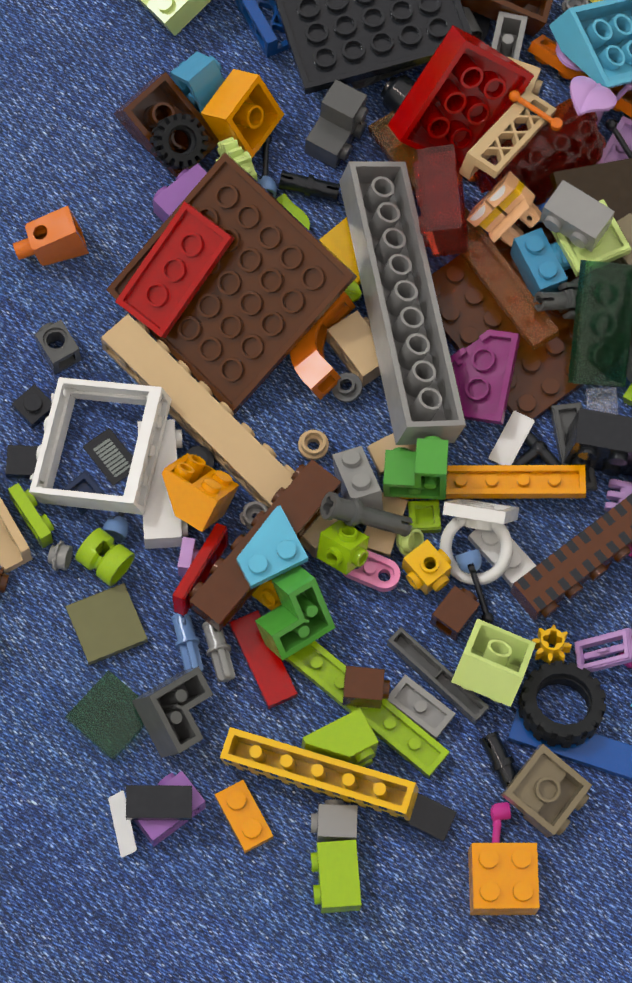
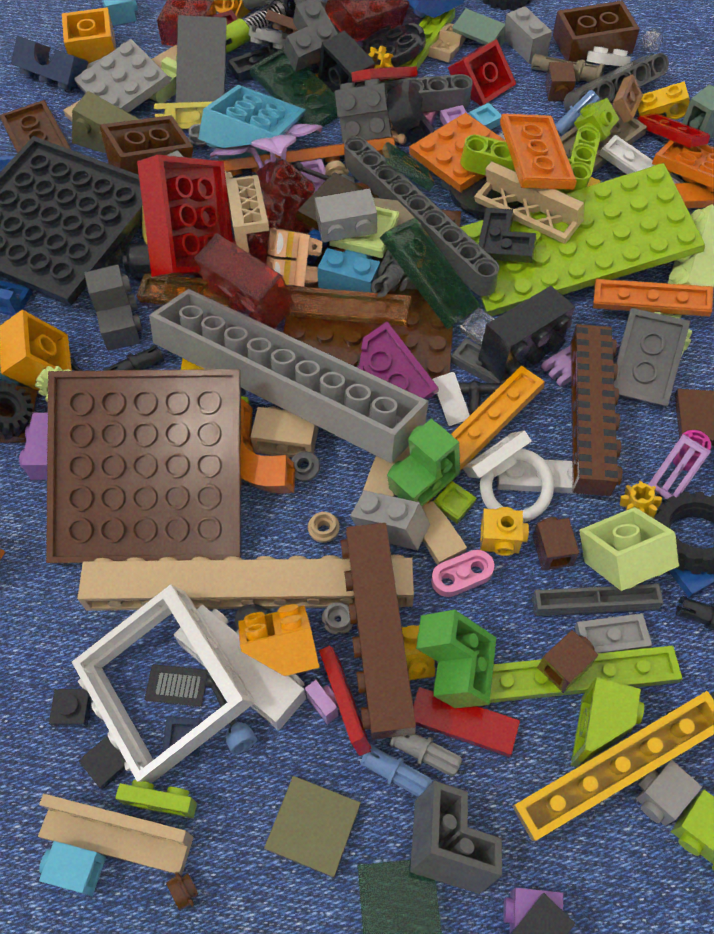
camera: 40 degrees left, 10 degrees down
(60, 556) = (216, 809): light grey plate -> none
(62, 357) = (55, 650): dark grey brick -> none
(113, 564) = (269, 770): lime wheel -> none
(174, 269) = (90, 493): red plate -> none
(244, 816) = (594, 868): light orange plate -> none
(271, 550) = (394, 624): medium azure wing -> none
(343, 547) = (435, 572): lime brick -> none
(355, 513) = (420, 535): dark grey pin -> none
(410, 542) = (466, 525): yellowish green plate -> none
(470, 563) = (525, 499): hinge -> none
(555, 123) = (268, 177): orange hinge -> none

